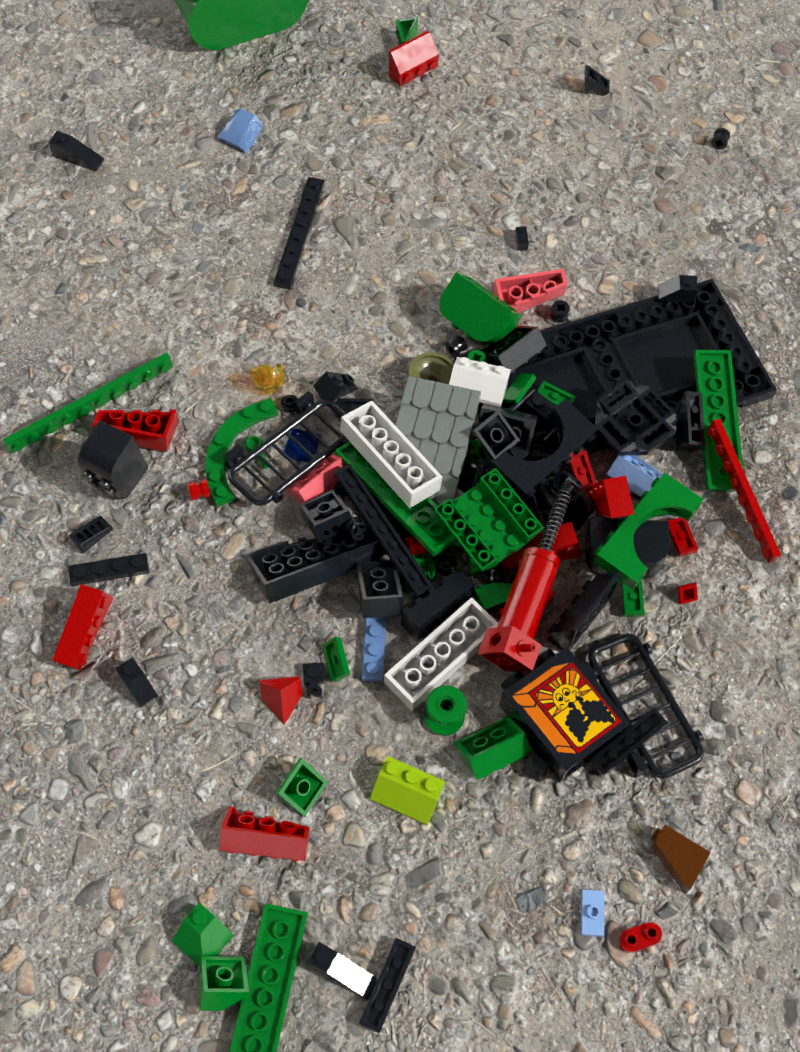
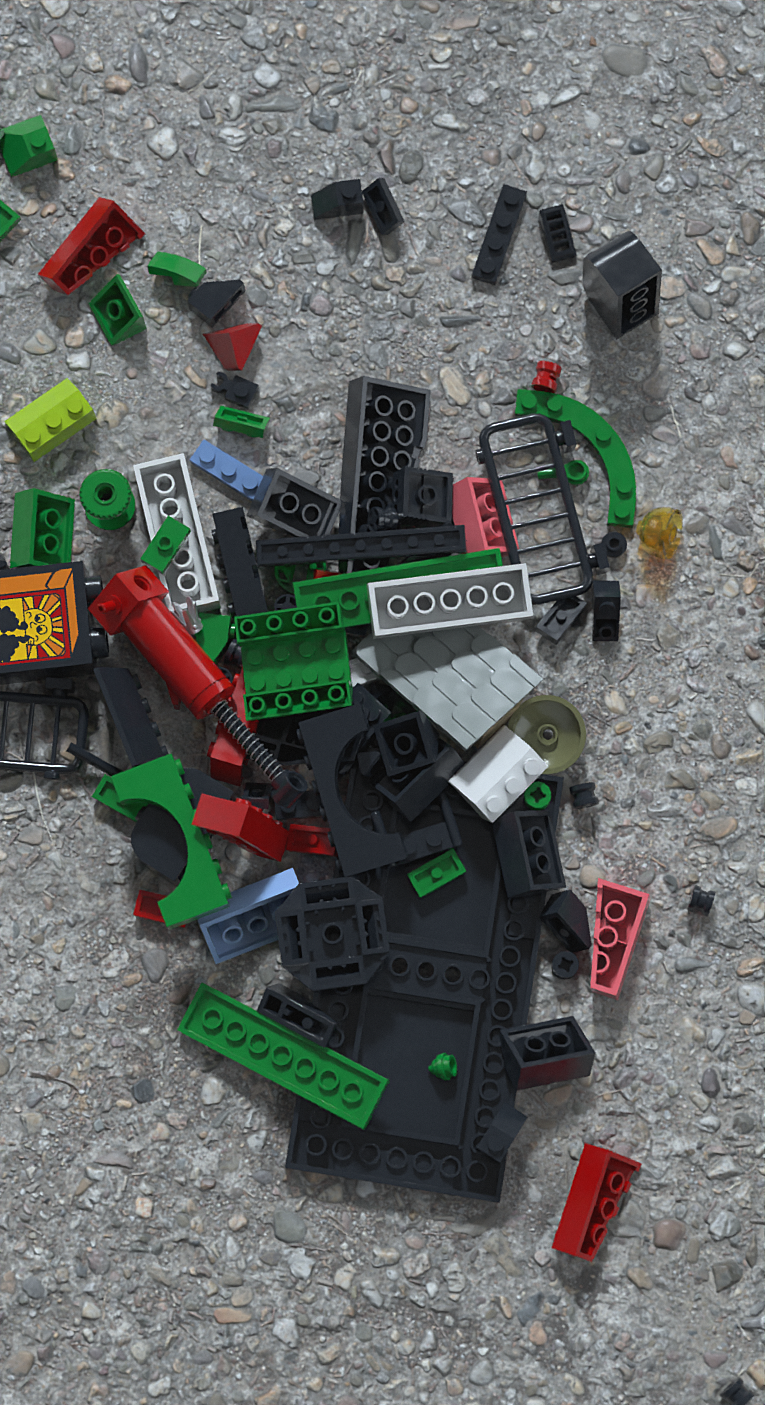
camera: 125 degrees right, 15 degrees up
(82, 626) = (437, 172): red wedge -> none
(88, 403) = (742, 317): green plate -> none
(127, 648) = (383, 206): none -> black plate
(148, 429) = (665, 351): red wedge -> none
(245, 763) = (183, 271): none -> green slope
(257, 725) = (214, 299): none -> black slope
(306, 440) = (545, 531): clear blue piece -> none
(456, 648) = (165, 544): none -> green plate
(477, 263) = (701, 900): none -> black wheel
(477, 310) = (609, 840): green brick -> none
(496, 606) = (188, 618): none -> flat silver piece
(519, 388) = (466, 825): green tile -> none
(521, 238) = (713, 989): black piece -> none
(536, 316) = (568, 920): none -> black slope
(617, 291) = (546, 1053): none -> black slope
(620, 618) = (93, 760): none -> black piece
(661, 341) = (443, 1066): none -> green plate
(678, 239) = (593, 1200): none -> red wedge
(687, 593) = (89, 866): red slope -> none
(745, 494) = (181, 1016): red plate -> none

